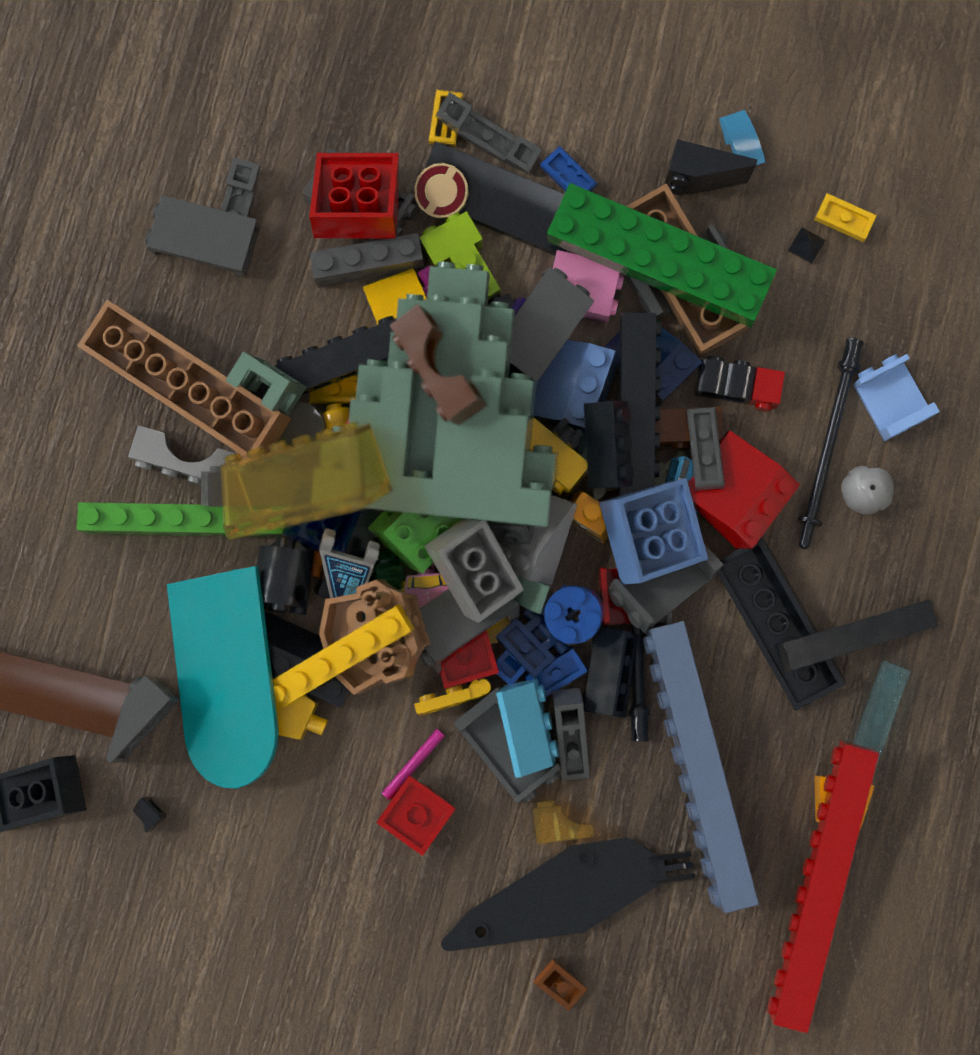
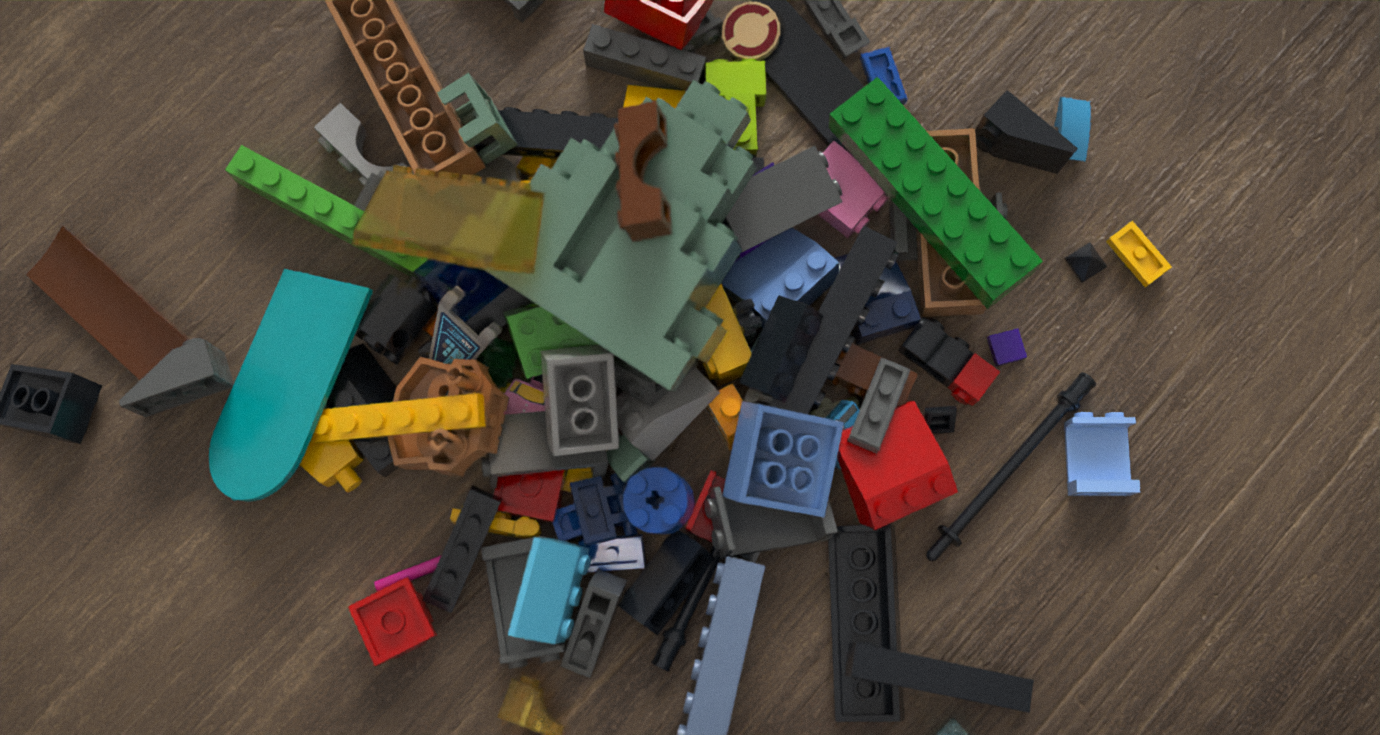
camera: 25 degrees right, 5 degrees down
(149, 813) = (138, 481): black slope -> none
(439, 731) = (462, 549): none -> black plate
(756, 432) = (941, 419): none -> black slope
(778, 347) = (1006, 347): none -> dark purple tile
(857, 490) = (1014, 535): light grey piece -> none

